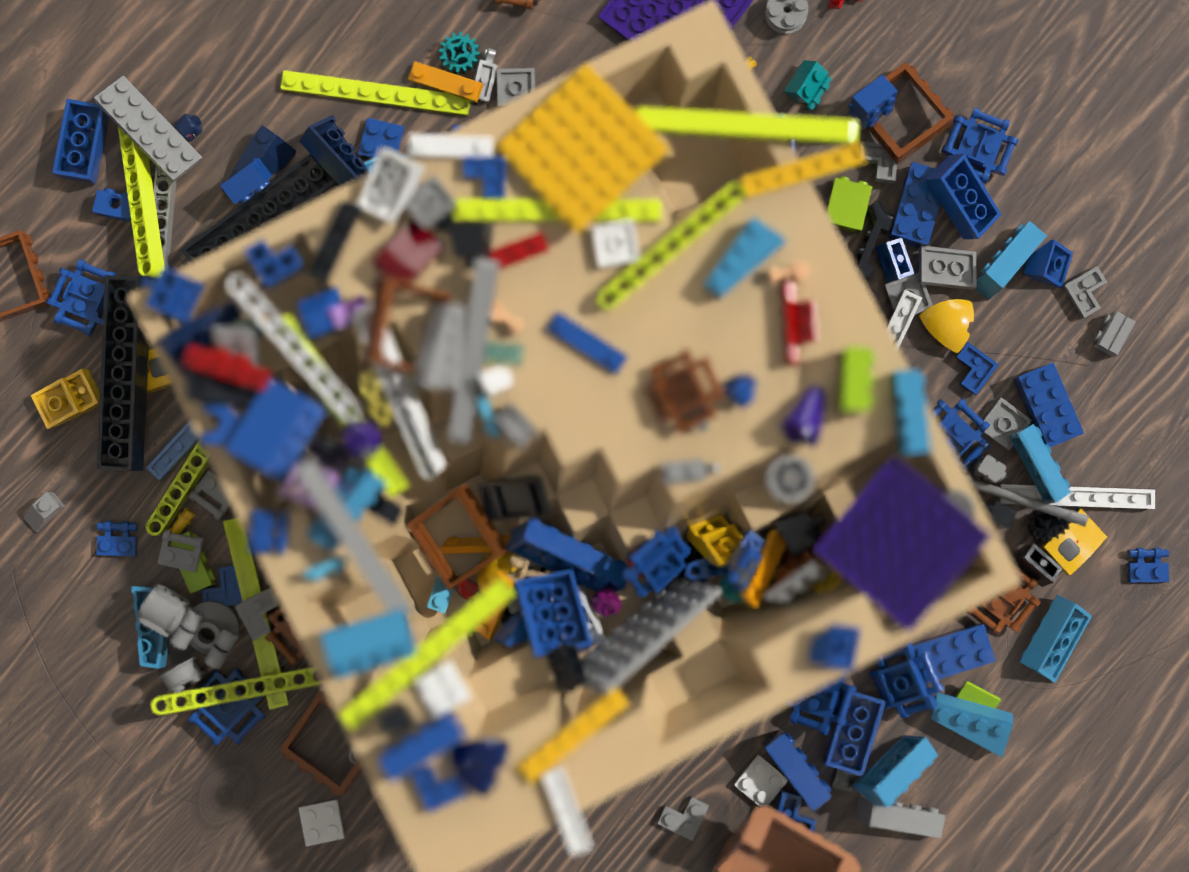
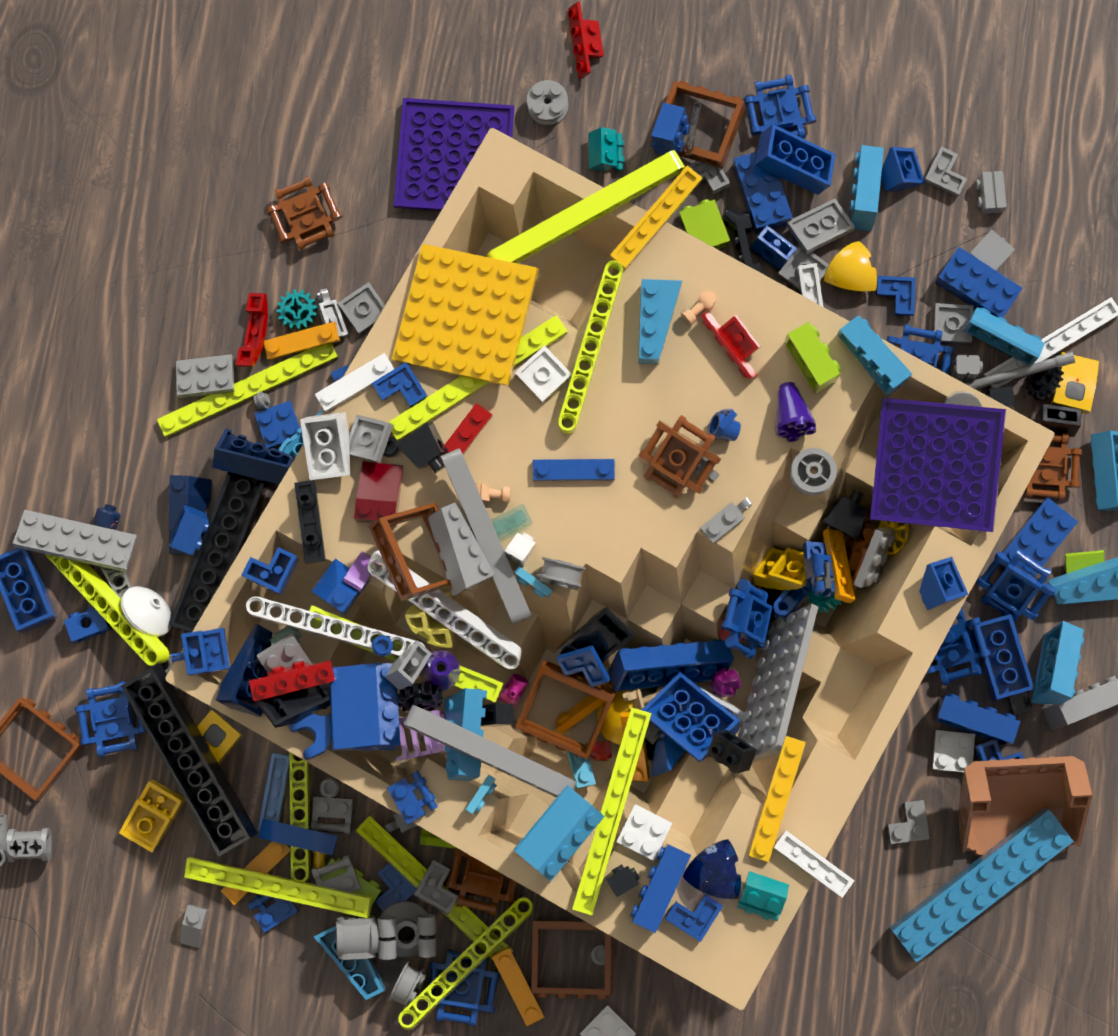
camera: 30 degrees left, 5 degrees down
(123, 499) = (263, 863): none -> light orange plate
(129, 527) = (278, 887): none -> neon yellow plate
(168, 226) = (146, 611): none -> white dish
(172, 495) = (298, 837): none -> blue slope
(272, 736) = (517, 986): none -> light orange plate
(322, 388) = (382, 646): none -> blue plate
(333, 419) = (408, 666): none -> light grey slope
(346, 60) = (205, 376): none -> light grey plate
(380, 111) = (262, 400): none -> light grey plate
(413, 49) = (256, 330): none -> red slope
(428, 491) = (514, 689): none -> dark pink piece
(497, 509) = (585, 661): none -> blue plate
(506, 810) = (763, 896): none -> teal brick
(895, 115) = (691, 129): none -> light grey piece
(1080, 383) = (993, 250): none -> light grey piece

